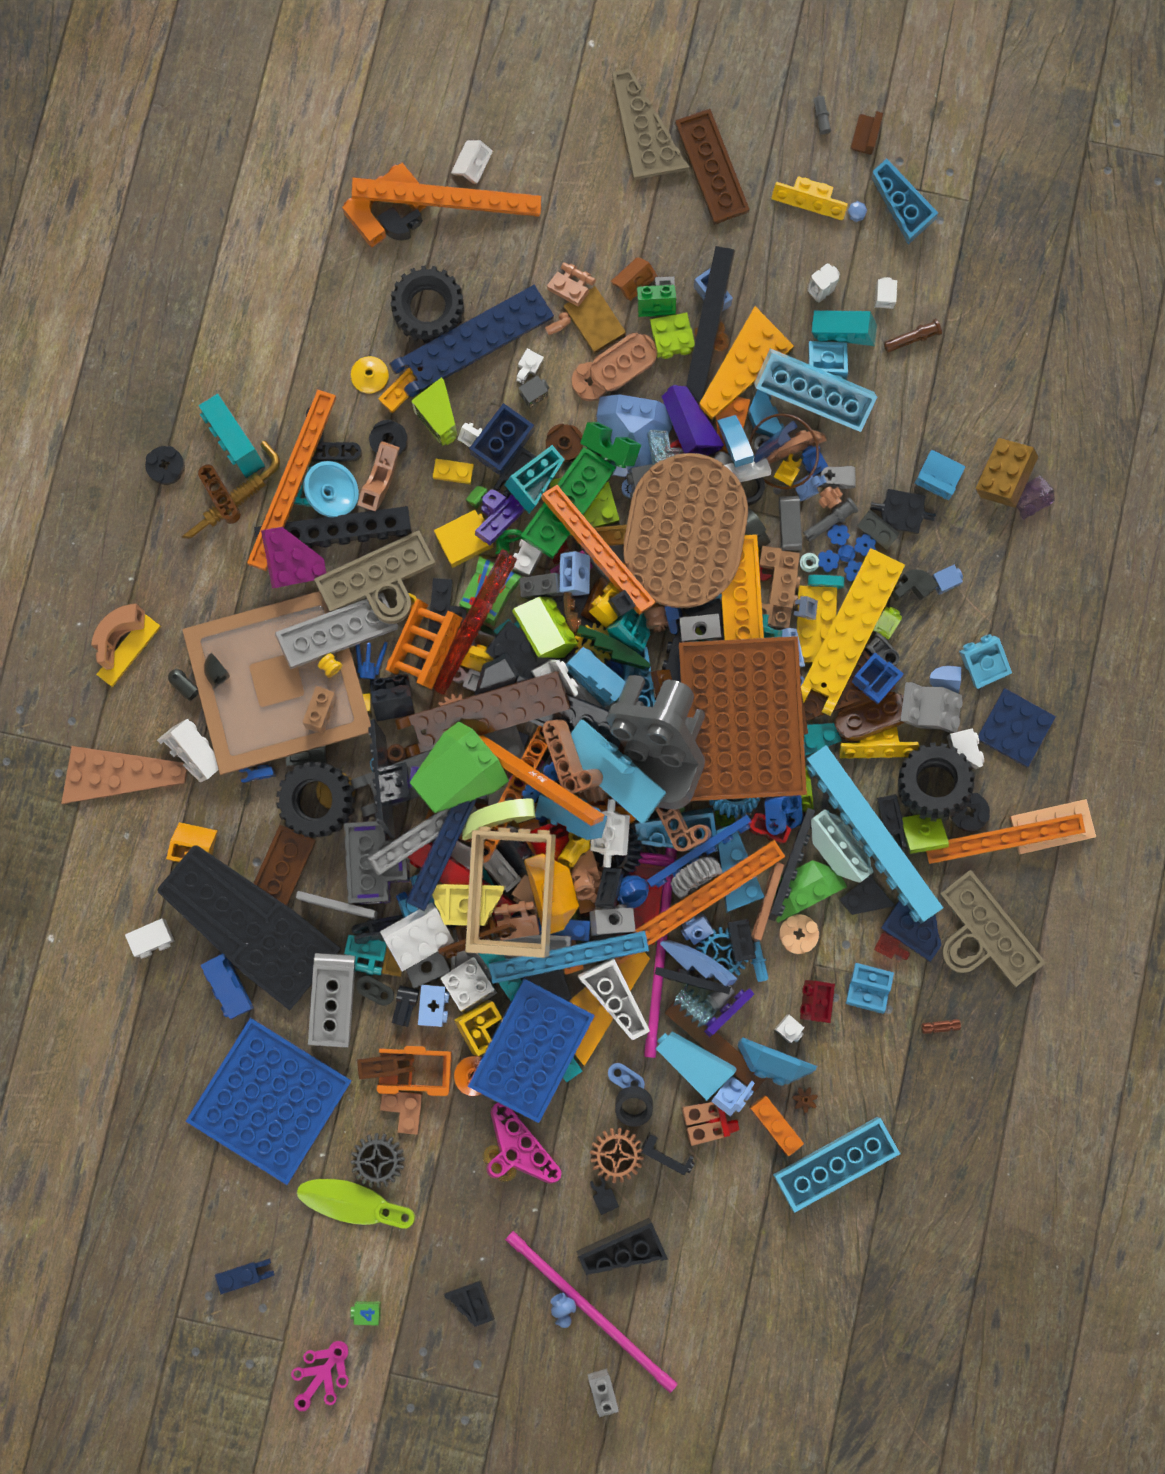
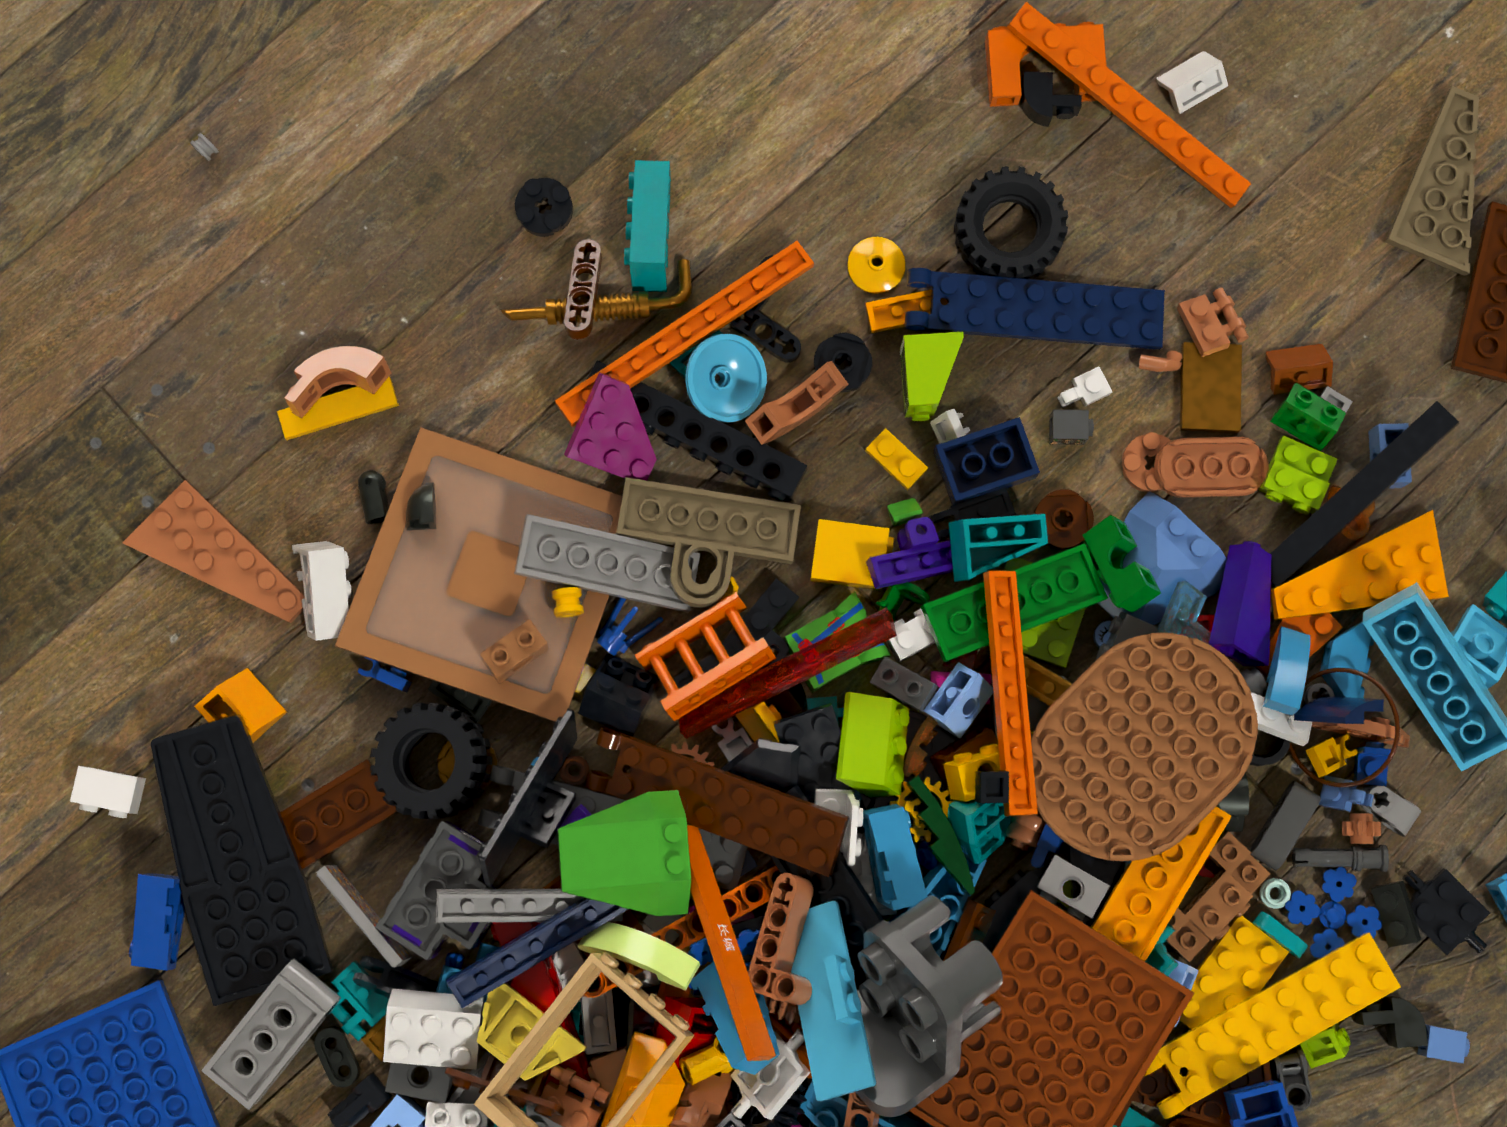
camera: 40 degrees right, 0 degrees up
(807, 608) = (1232, 954): sand blue tile -> none

